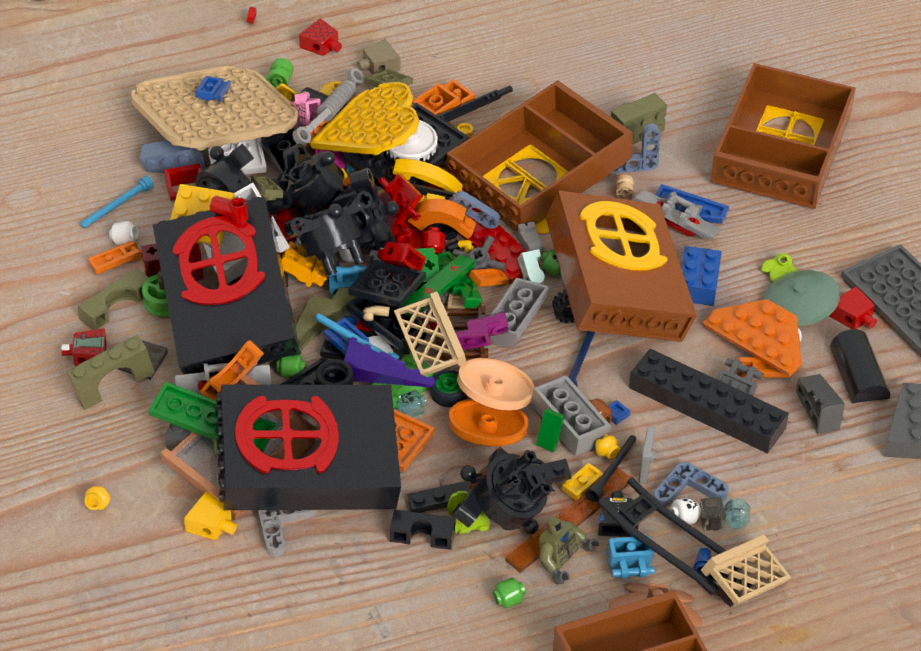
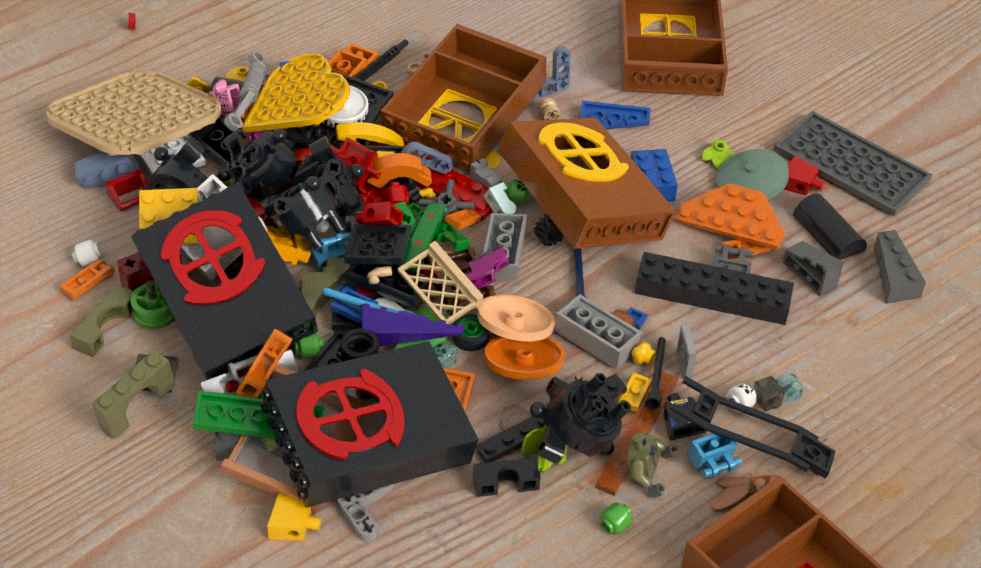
camera: 20 degrees left, 0 degrees up
(85, 345) = (95, 375): red torso -> none
(97, 498) = (165, 527): yellow animal -> none
(144, 184) = (88, 200): dark azure piece -> none
(212, 88) = (127, 94): blue plate -> none
(232, 208) = (215, 201): red piece -> none
(267, 187) = (225, 176): olive plate -> none
(280, 72) = (182, 67): bright green wheel -> none
(320, 38) = (207, 30): red torso -> none
(379, 57) = (273, 38): dark tan torso -> none
(387, 76) = (286, 53): olive tile -> none
(550, 430) = (586, 350): green tile -> none
(641, 113) = (542, 39): olive piece -> none
(685, 222) = (620, 130): light grey piece -> none
(689, 478) = (729, 365): sand blue beam -> none
(702, 558) = (780, 440): blue cone -> none
(738, 557) = (815, 431): tan fence -> none

